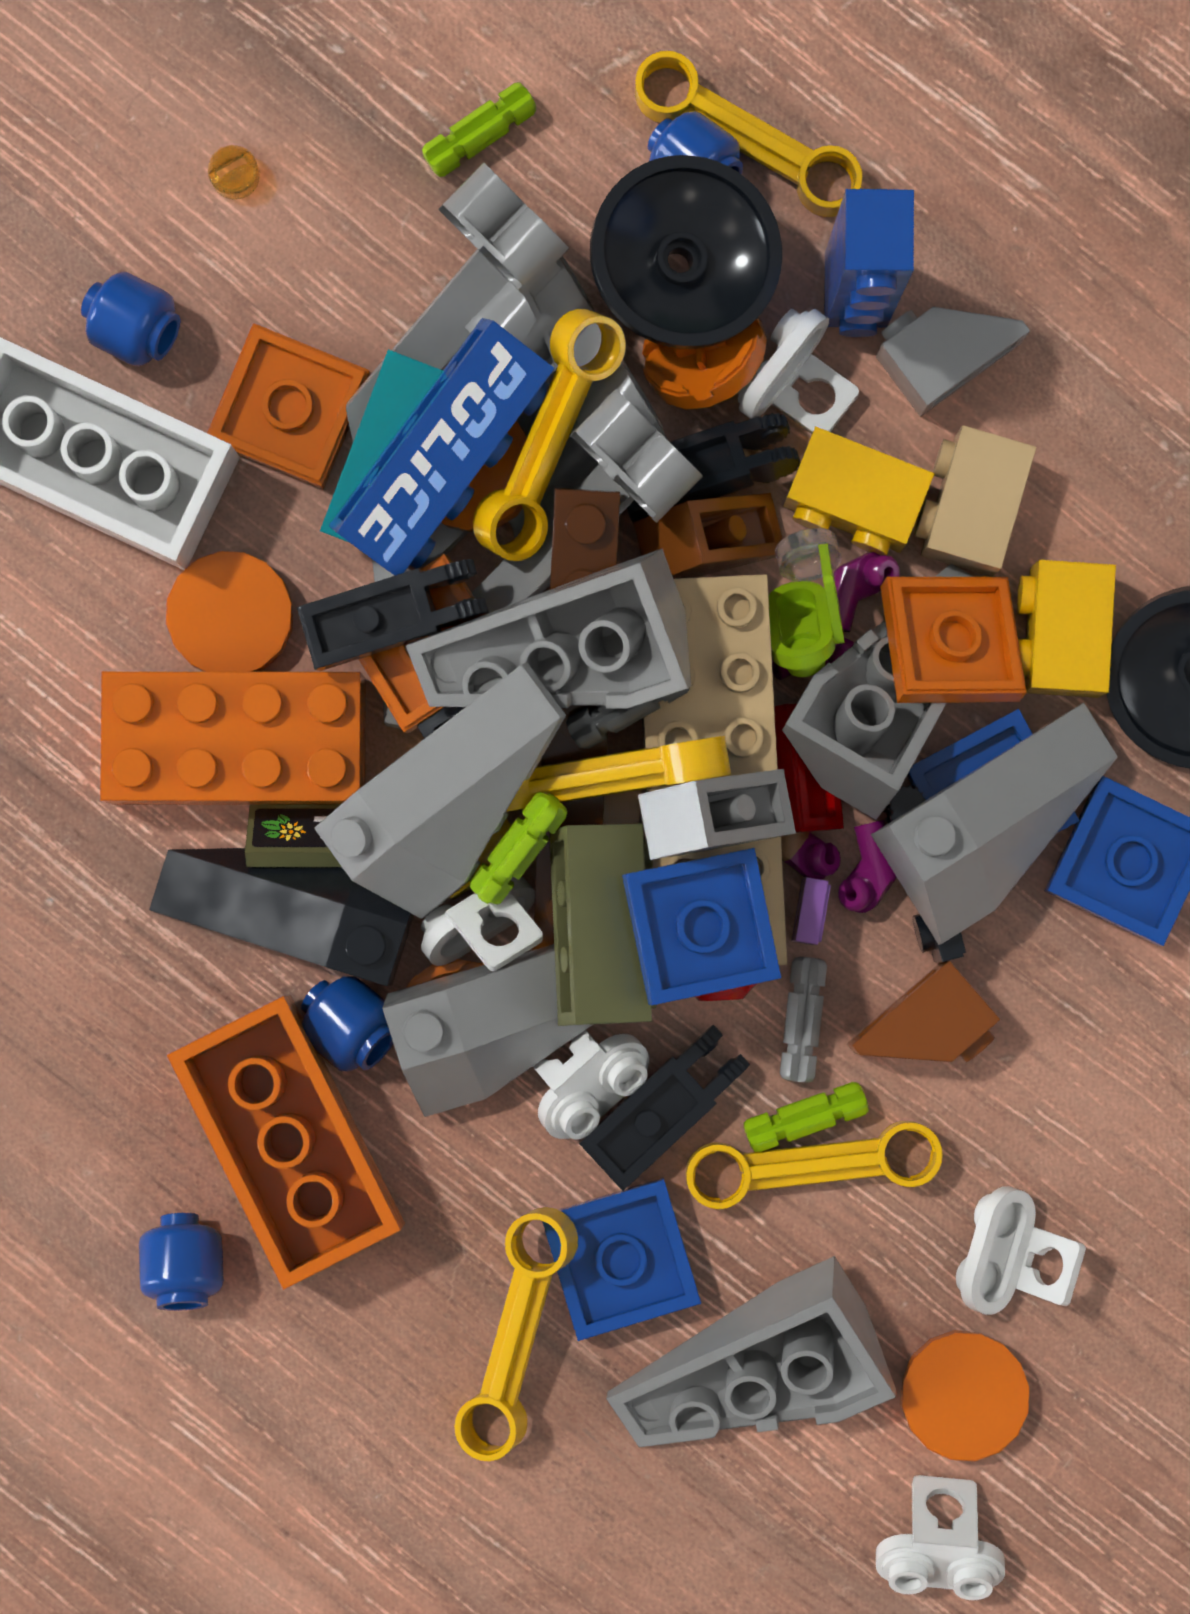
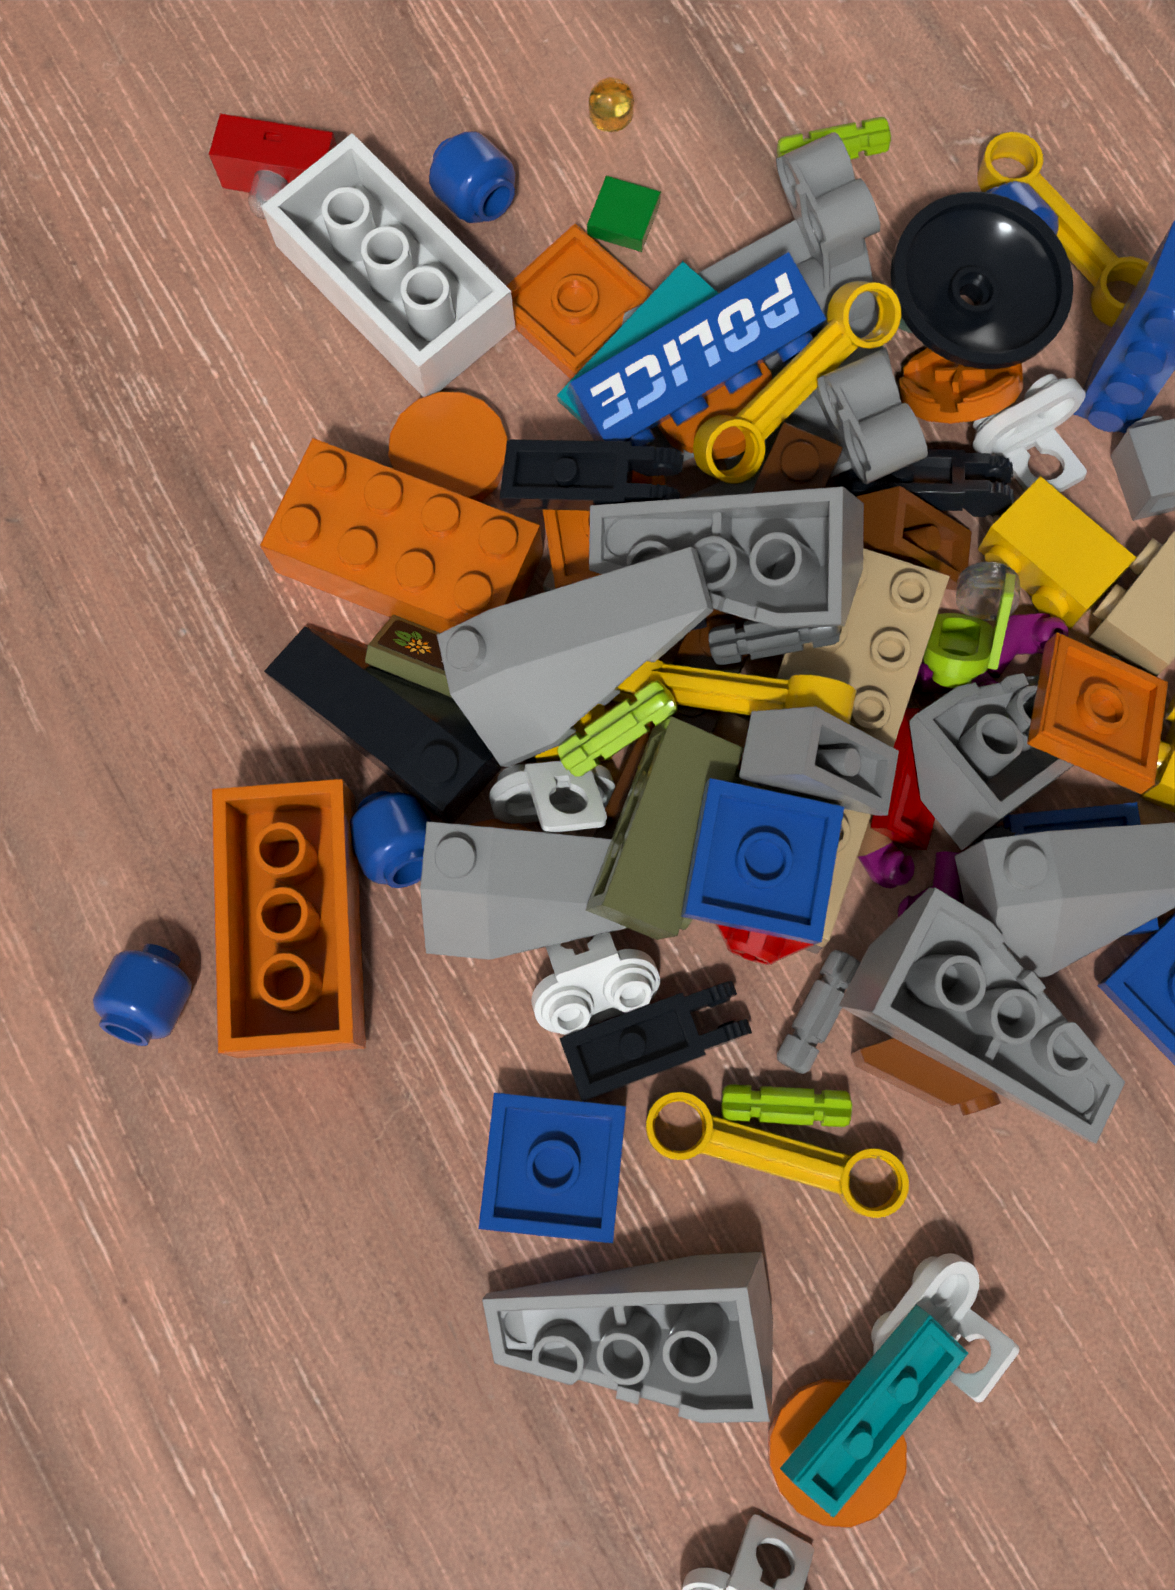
camera: 30 degrees right, 10 degrees down
(297, 290) = (623, 213): none -> green tile
(515, 1334) = (420, 1198): yellow piece -> none
(811, 911) = (867, 911): medium lavender tile -> none
(930, 970) = (967, 1002): none -> light grey wedge
(982, 1349) = (874, 1411): none -> teal tile

